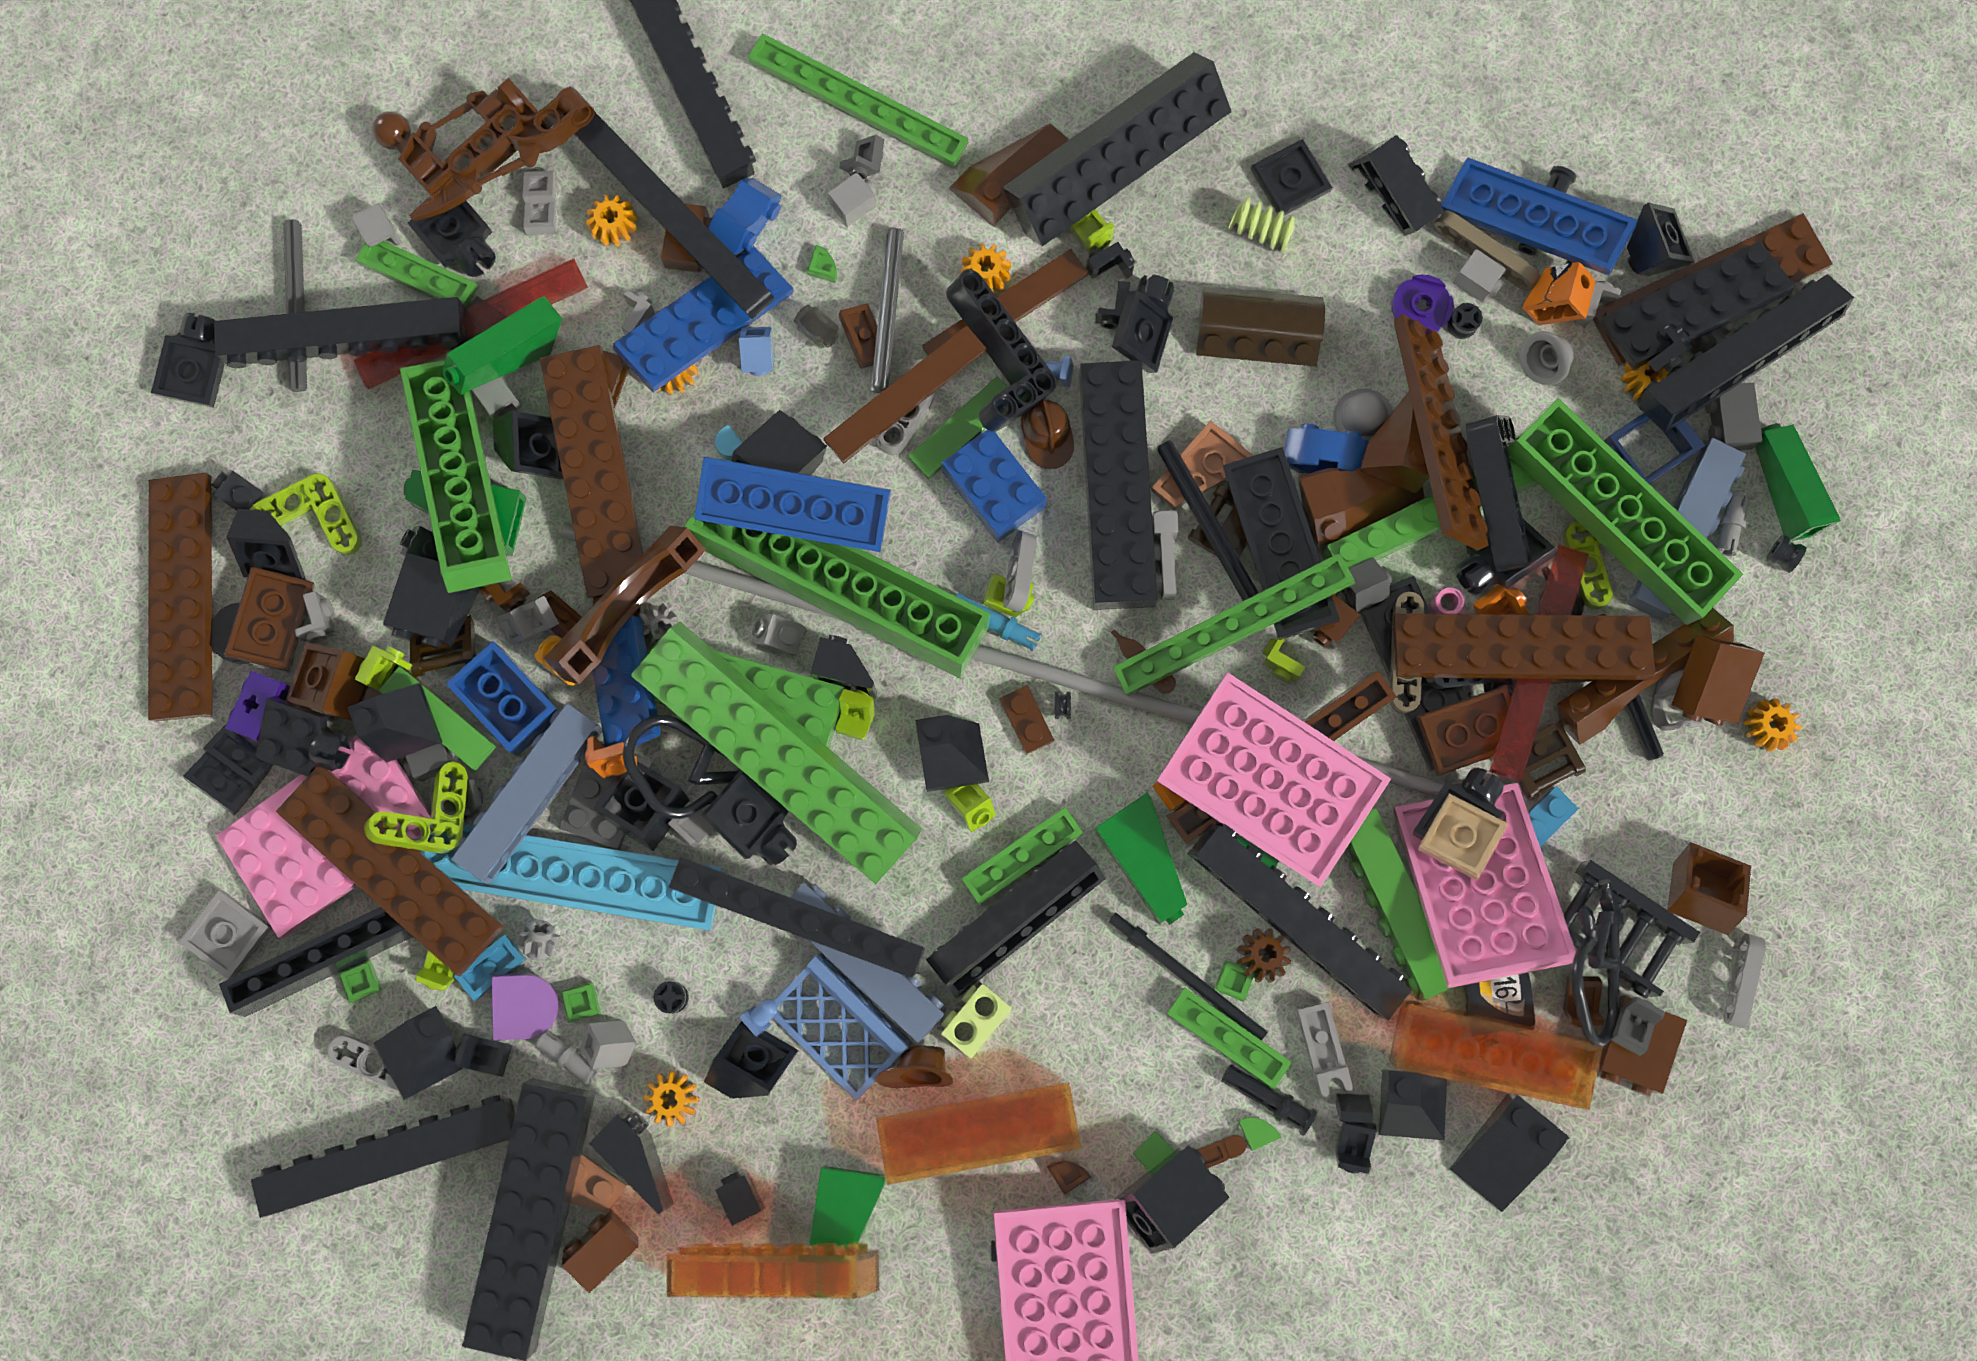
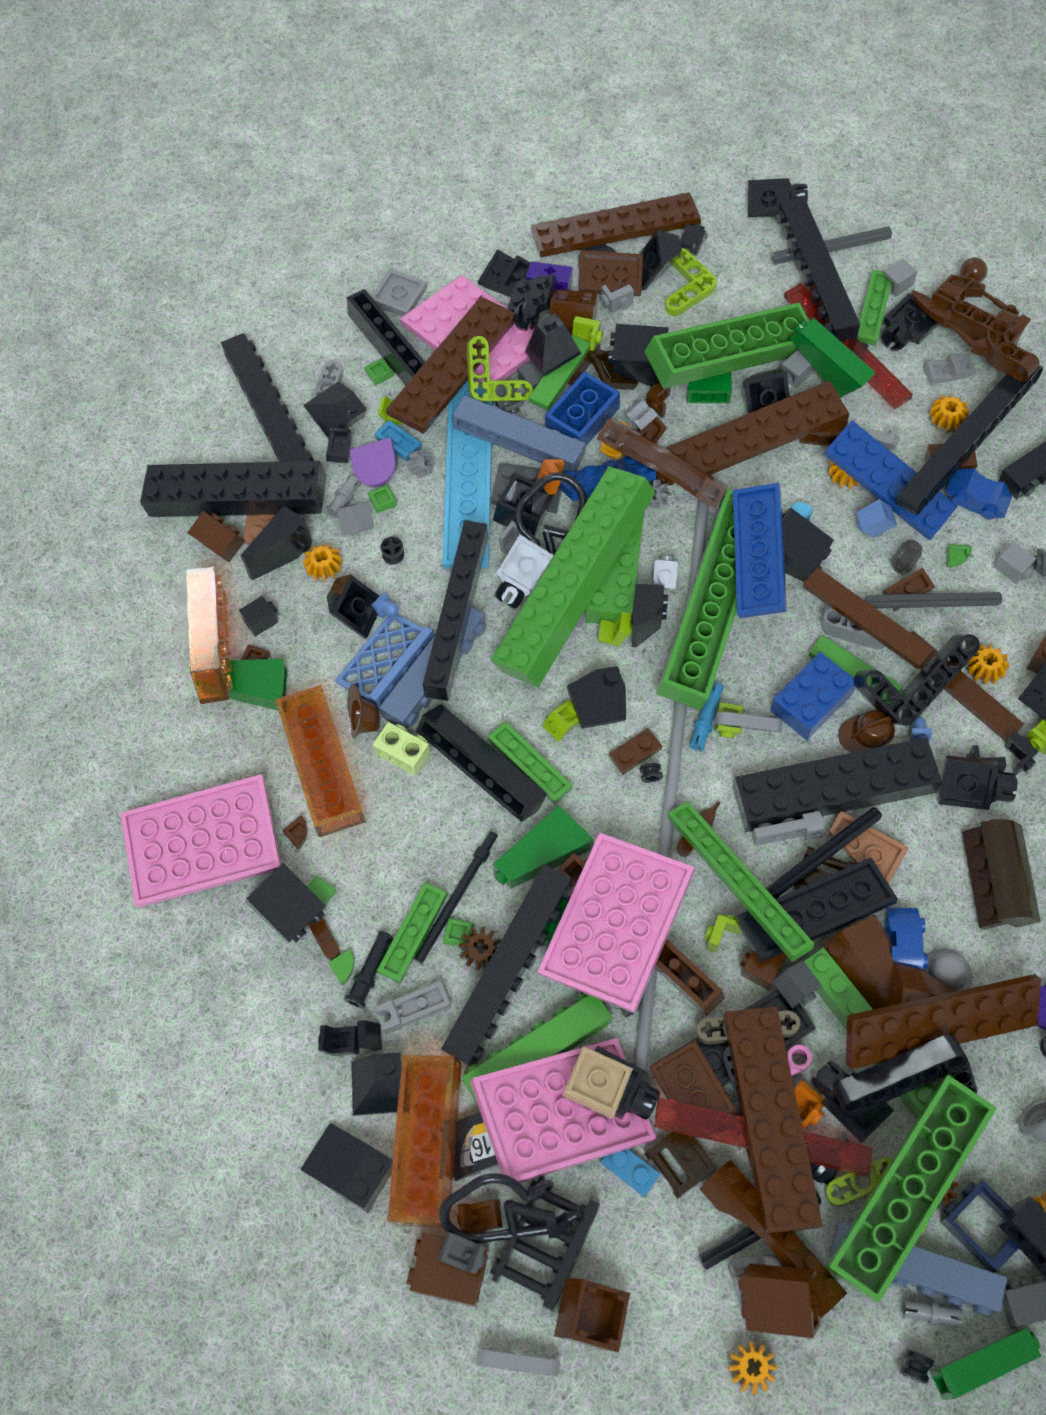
camera: 85 degrees right, 15 degrees down
(798, 1212) = (255, 653): none -> reddish brown tile

